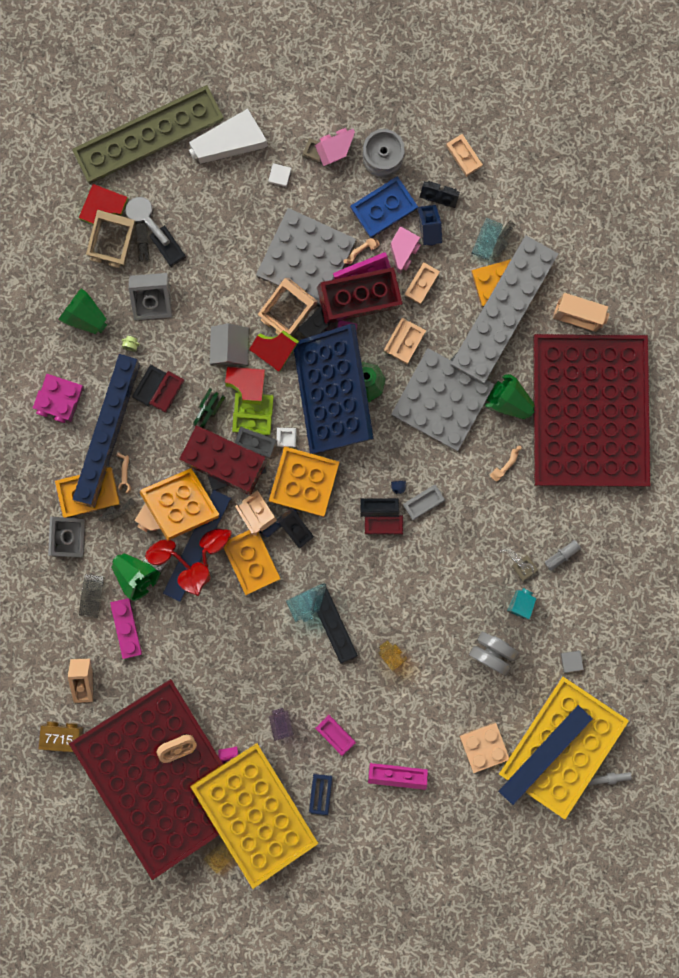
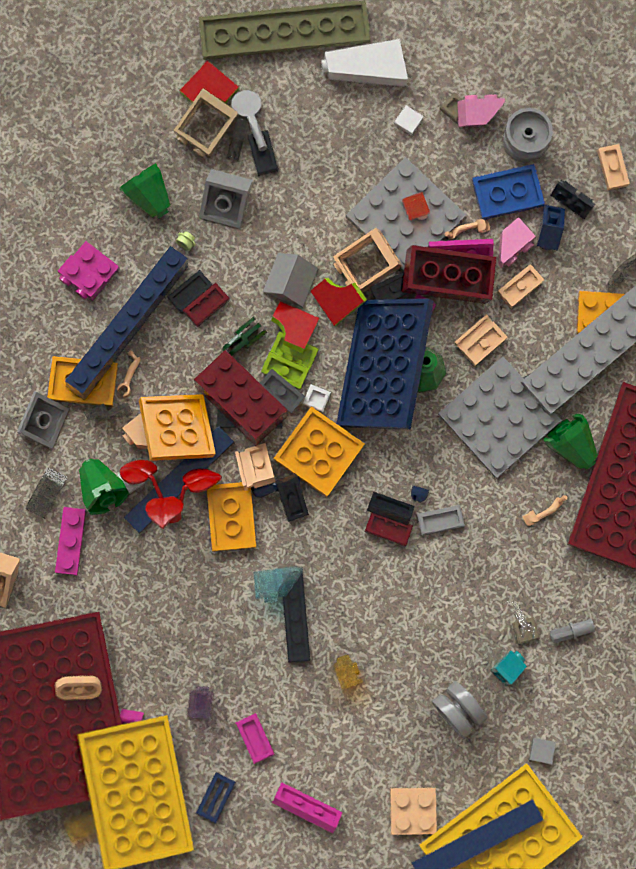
camera: 15 degrees right, 5 degrees down
(311, 246) = (415, 206): none -> clear orange tile
(487, 239) = (607, 263): clear light blue plate -> none

